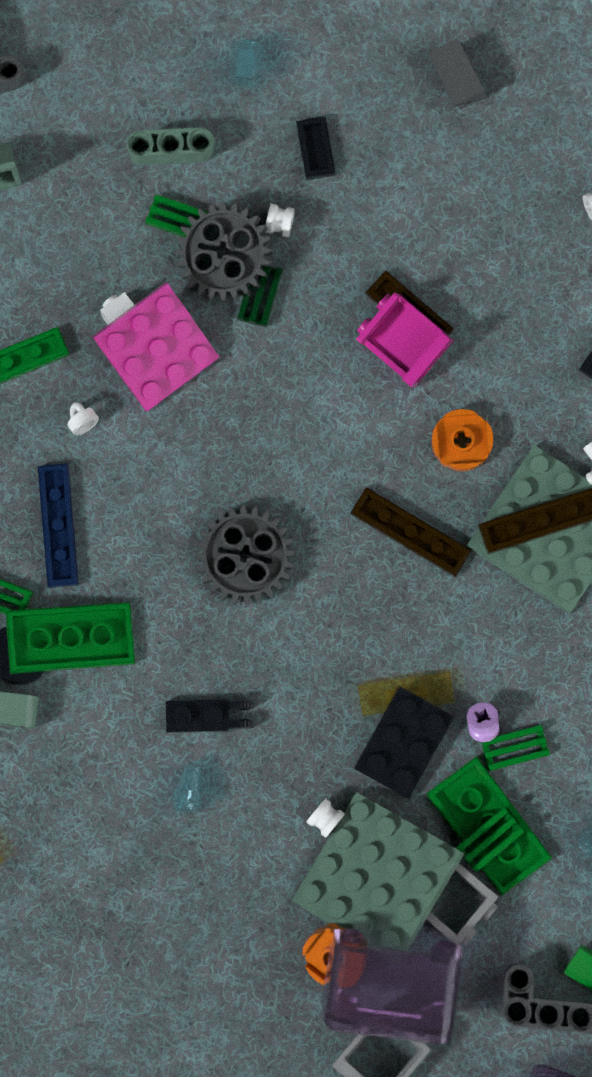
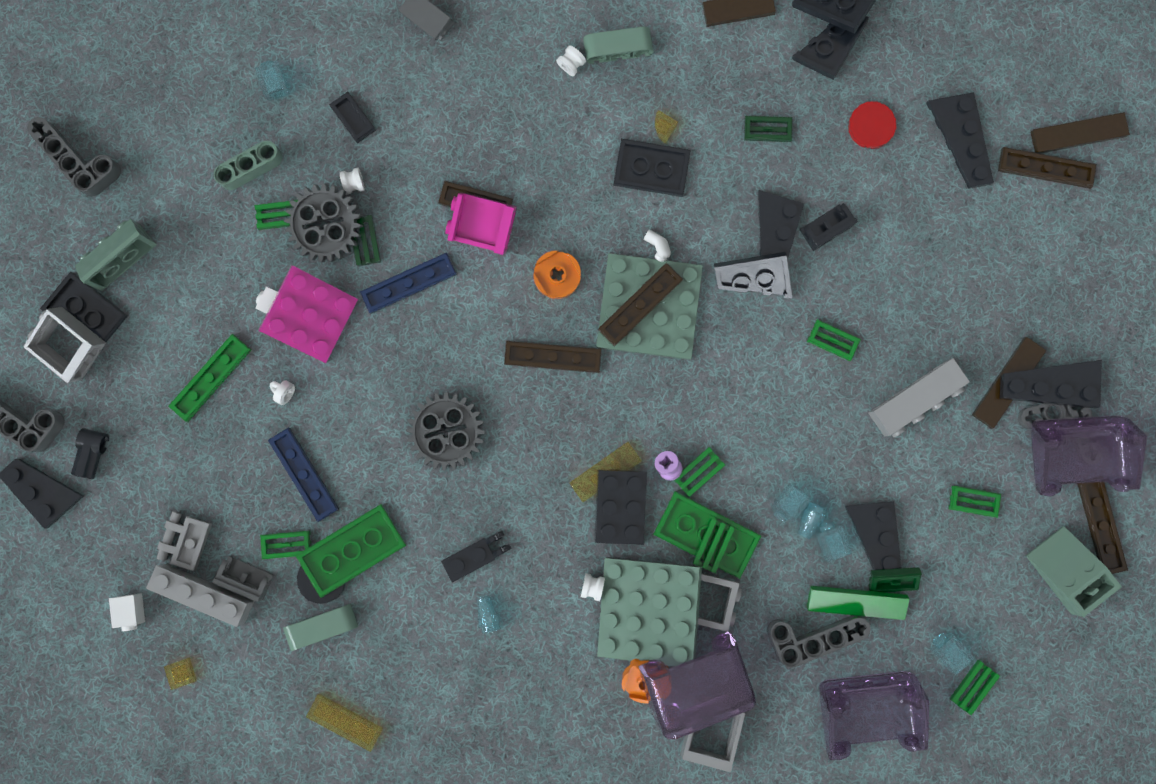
camera: 30 degrees left, 5 degrees up
(286, 366) = (408, 283): none -> dark blue tile

